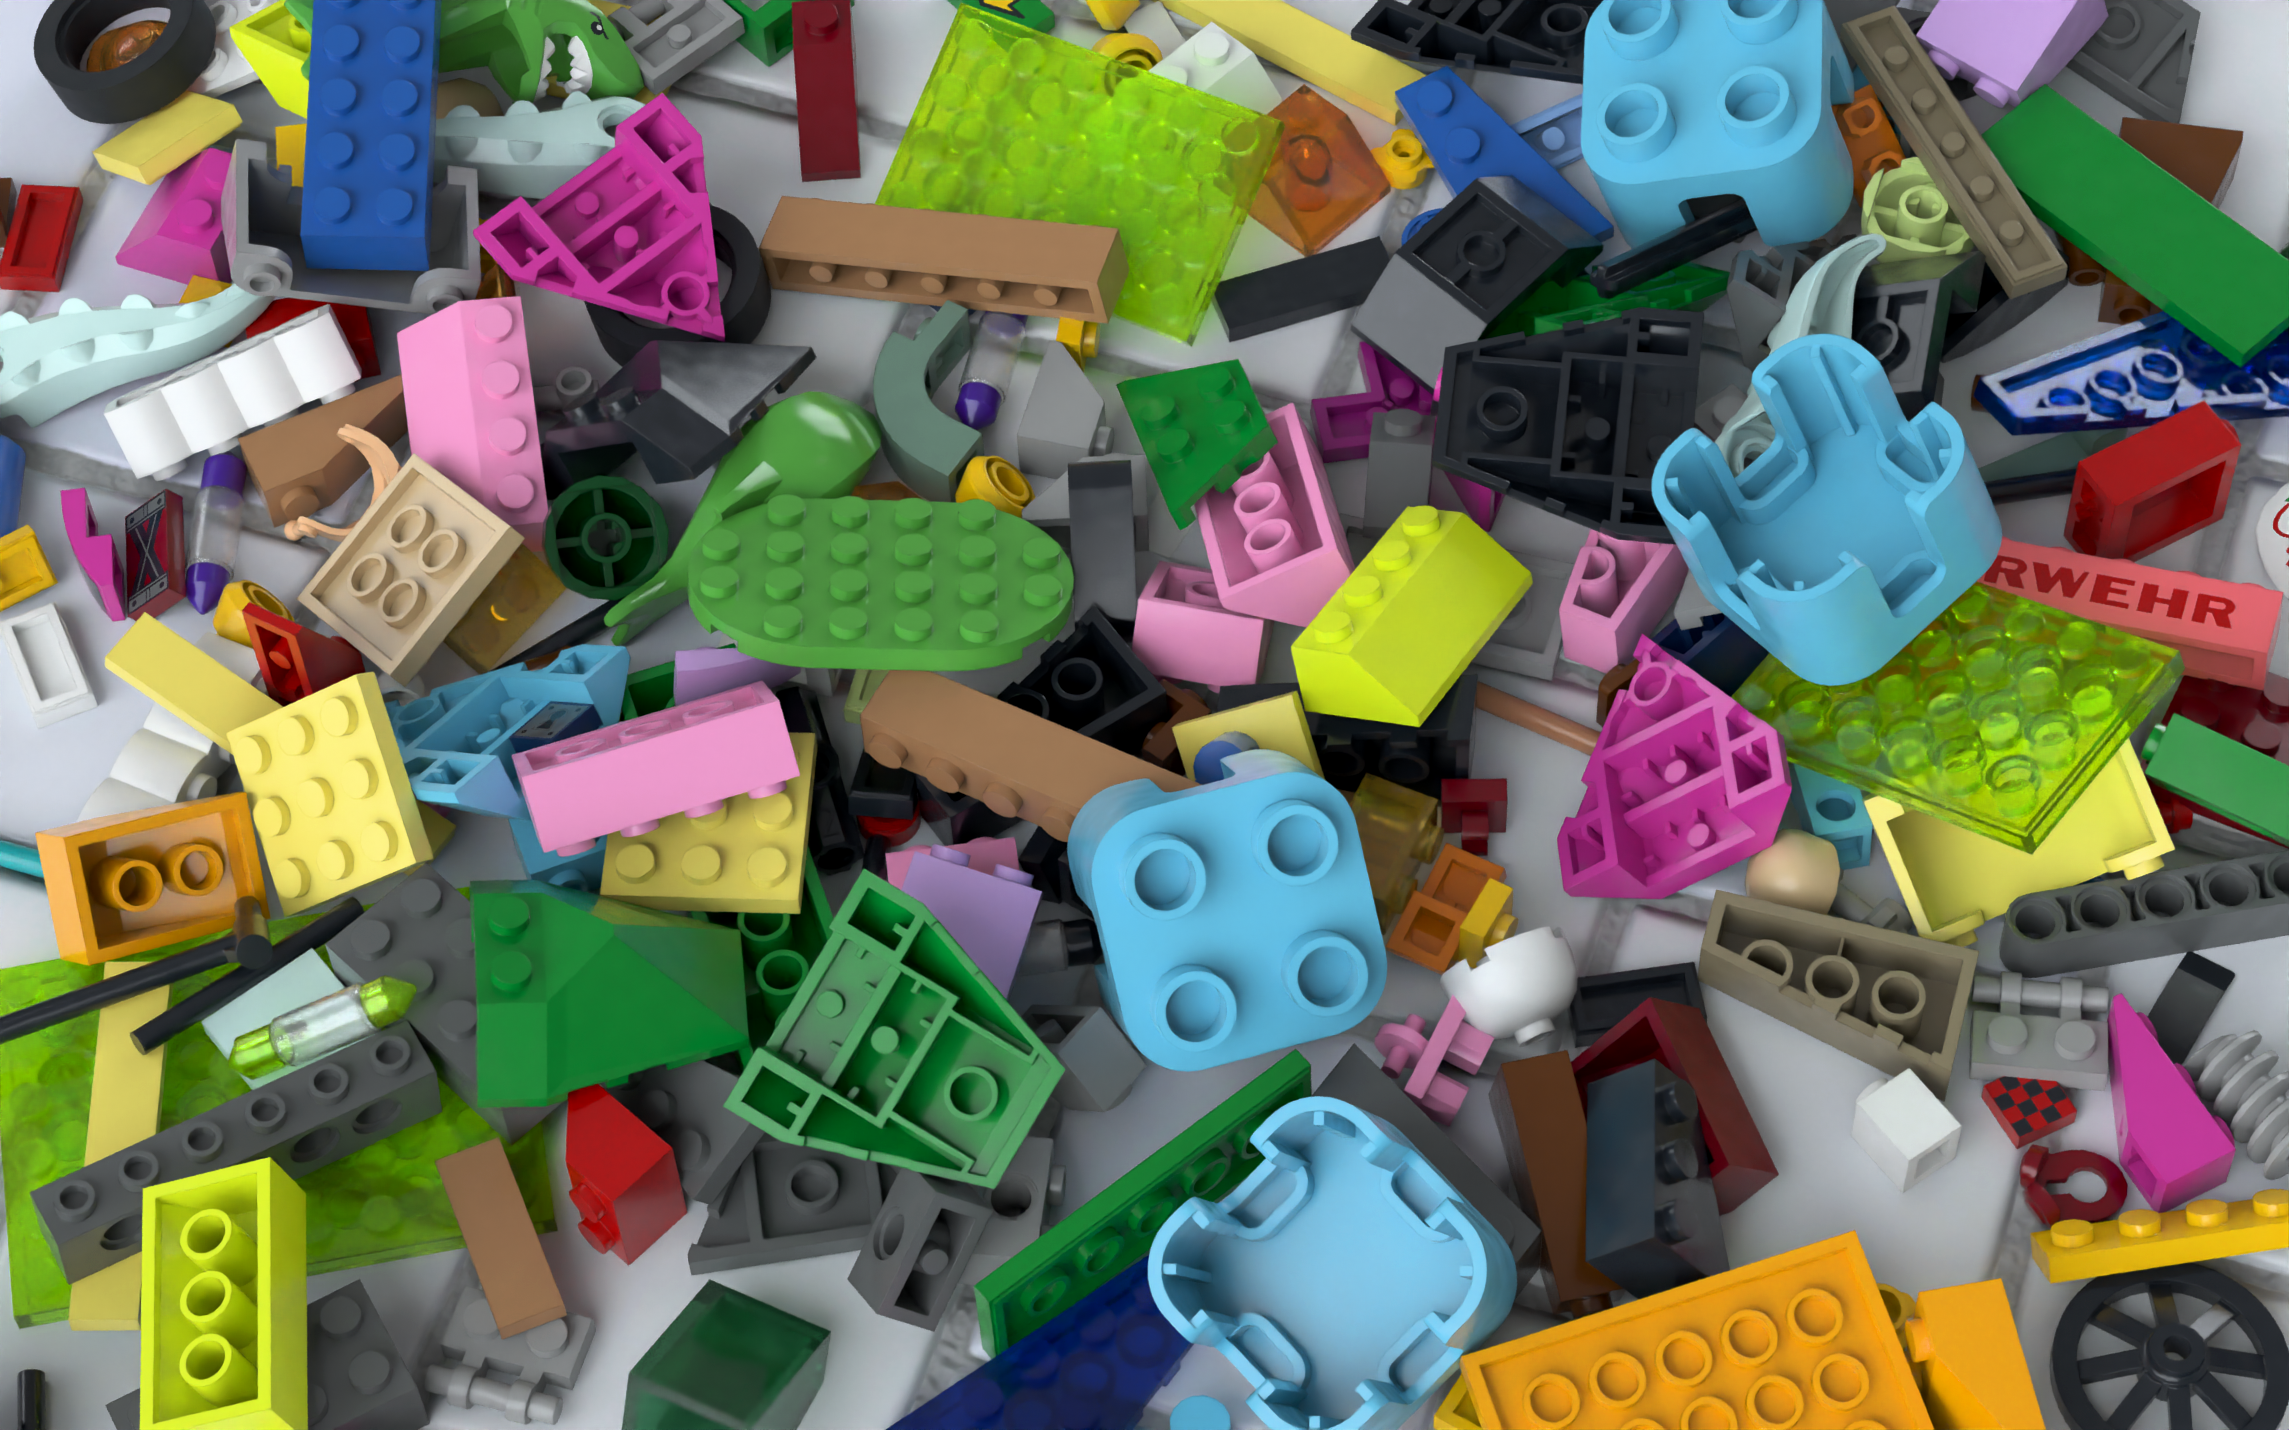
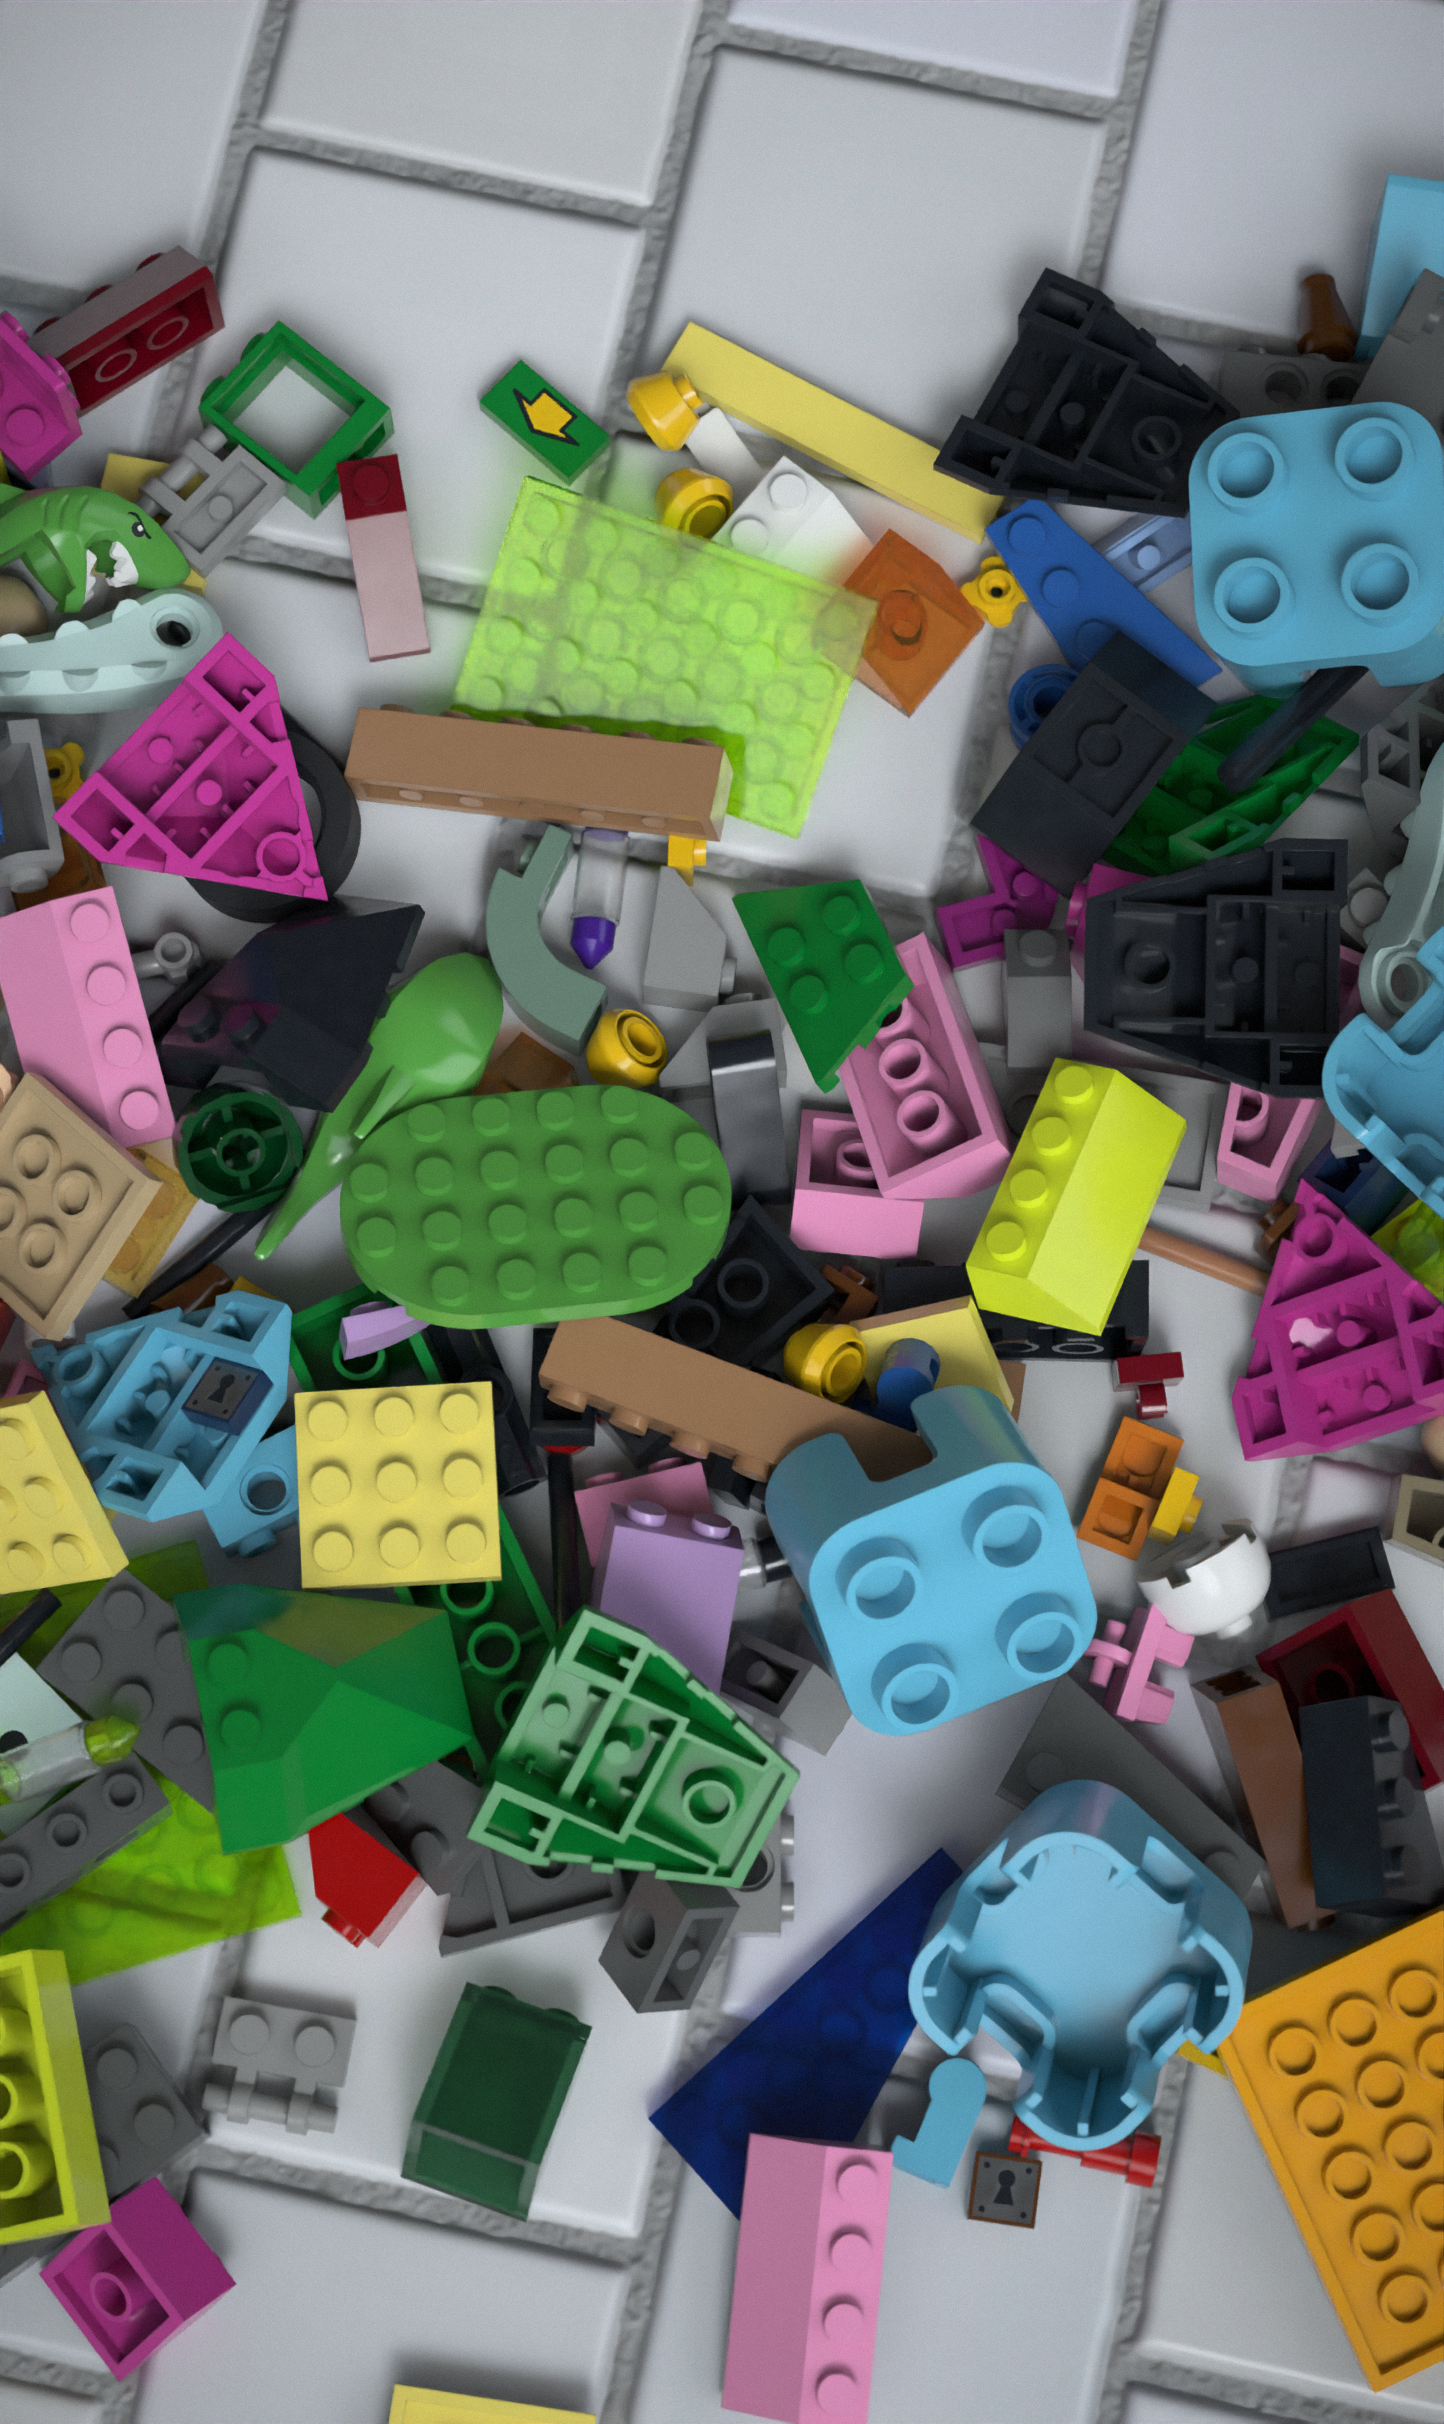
camera: 10 degrees left, 20 degrees up
(500, 1238) = (254, 1953): medium nougat tile -> none
(656, 768) = (340, 1452): bright pink slope -> none
(1124, 1218) = (882, 1865): green tile -> none
(1154, 736) = (826, 1360): none -> yellow cone
(1299, 289) = (911, 761): black tile -> none
(1396, 837) = (1063, 1421): clear yellow brick -> none

